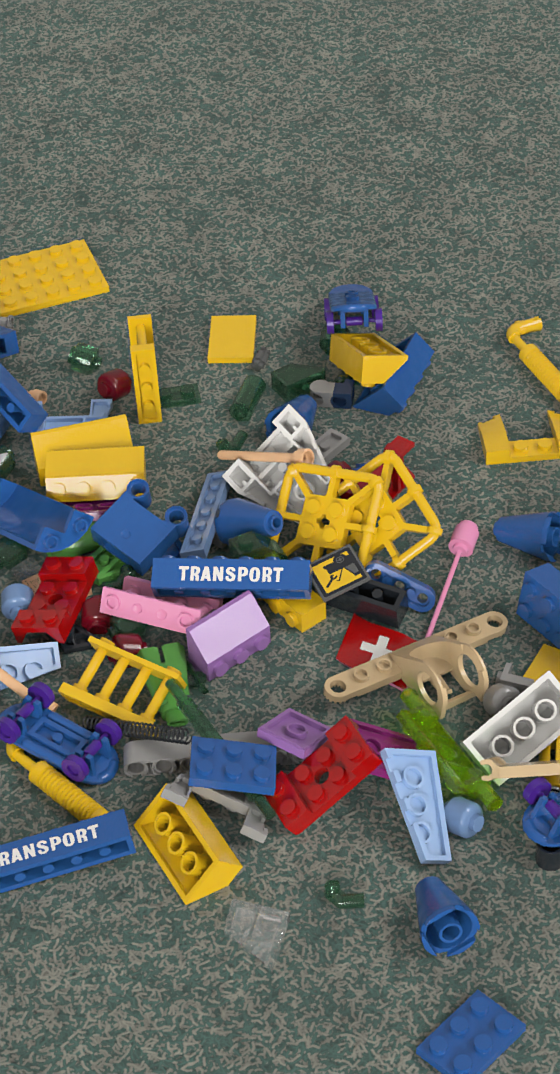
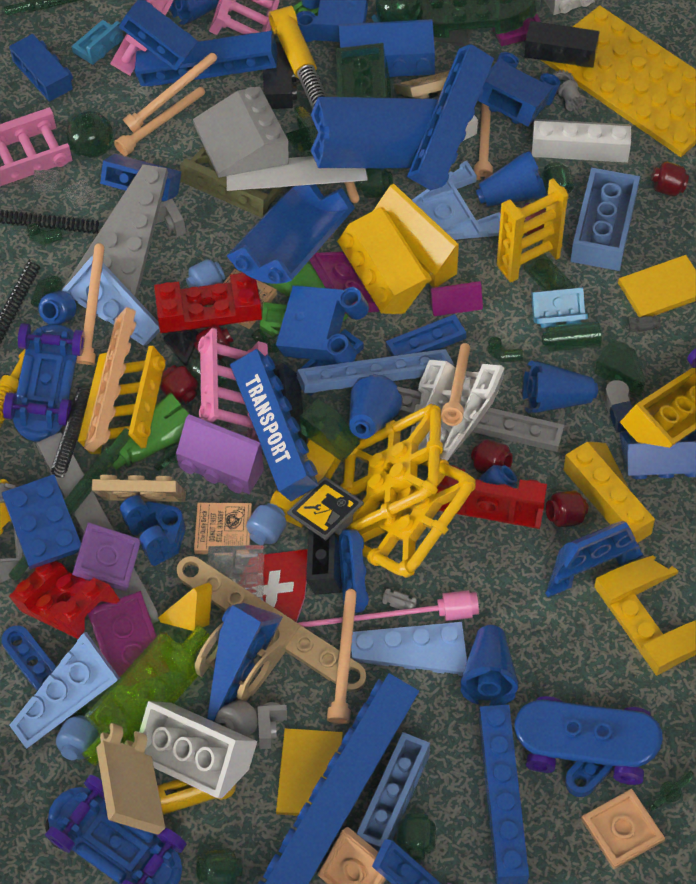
camera: 65 degrees right, 15 degrees up
(53, 332) = (581, 140): none -> white slope
(70, 376) = (514, 181): none -> blue cone
(101, 681) = (112, 372): none -> light nougat plate
(132, 298) = (669, 179): none -> dark red head
(160, 453) = (456, 298): none -> magenta slope
(173, 345) = (605, 219): none -> medium blue brick
(188, 481) = (428, 338): none -> blue plate
(214, 396) = (558, 306): none -> dark azure bracket
(240, 686) = (161, 490): none -> tan plate
(272, 696) = (156, 541): none -> blue piece
(297, 666) = (221, 525): none -> light nougat tile
(315, 631) = (266, 524): none -> medium blue head
(346, 655) = (241, 564): none -> clear slope
(371, 826) = (25, 652): none -> blue plate
(378, 698) = (191, 609): none -> yellow slope
(411, 422) = (603, 484): none -> yellow wedge
(417, 454) = (566, 508): none -> dark red head
(436, 575) = (398, 600): none -> light grey piece
(445, 654) = (240, 639): none -> blue wedge
(464, 444) = (591, 550): none -> blue wedge
(485, 579) = (419, 647): none -> light blue wing
(523, 637) = (339, 711): none -> light nougat piece

